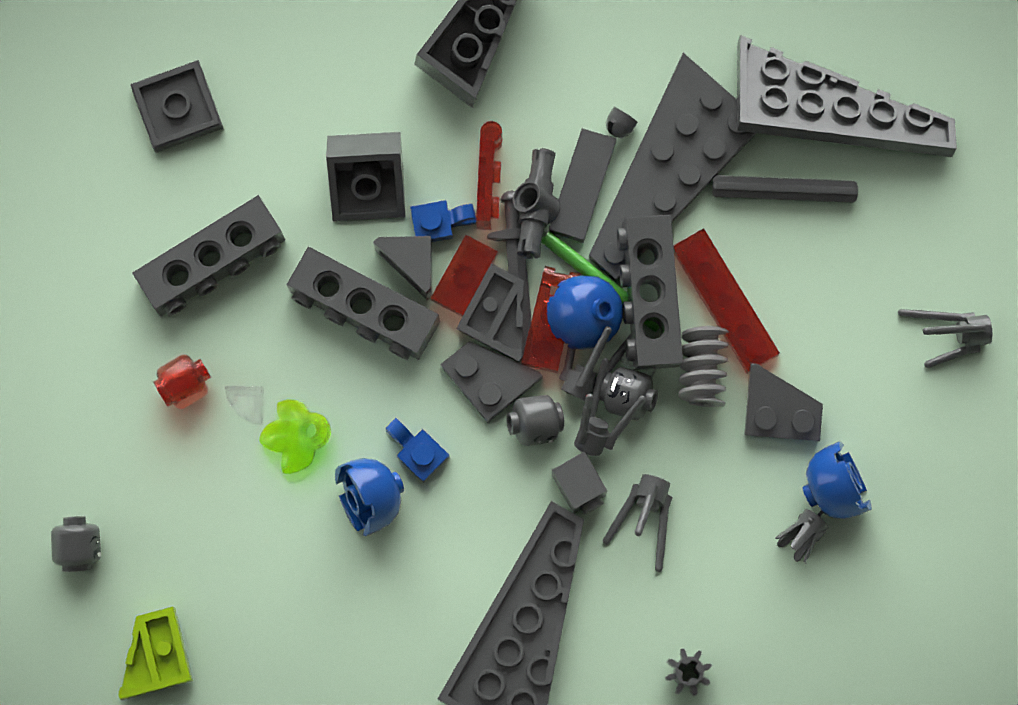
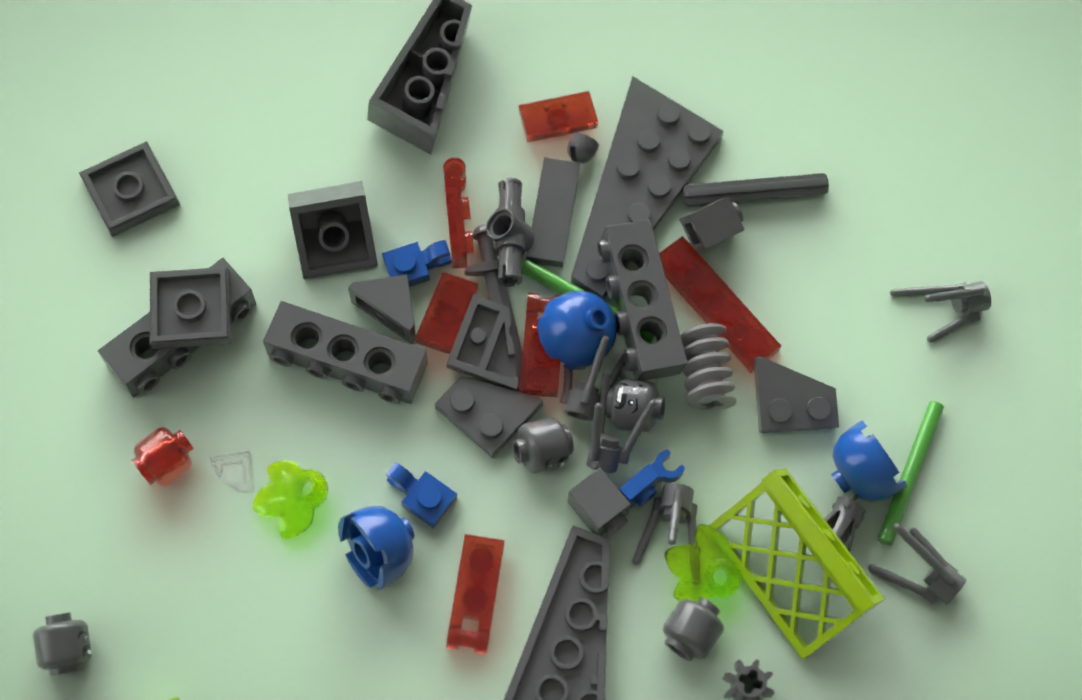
camera: 15 degrees left, 10 degrees down
(222, 243) = (190, 308): none -> dark grey tile
(453, 549) = (475, 592): none -> clear red plate
(602, 86) = (558, 116): none -> clear red plate
(621, 473) = (641, 487): none -> blue plate
(646, 613) = (693, 628): none -> dark grey head
(660, 555) = (697, 565): none -> clear neon green plate
(735, 221) = (712, 223): none -> dark grey brick
(779, 557) = (825, 549): none -> lime fence
(821, 105) = (785, 107): wing -> none
(881, 493) = (911, 472): none -> bright green bar
(888, 599) = (942, 579): none -> dark grey plant

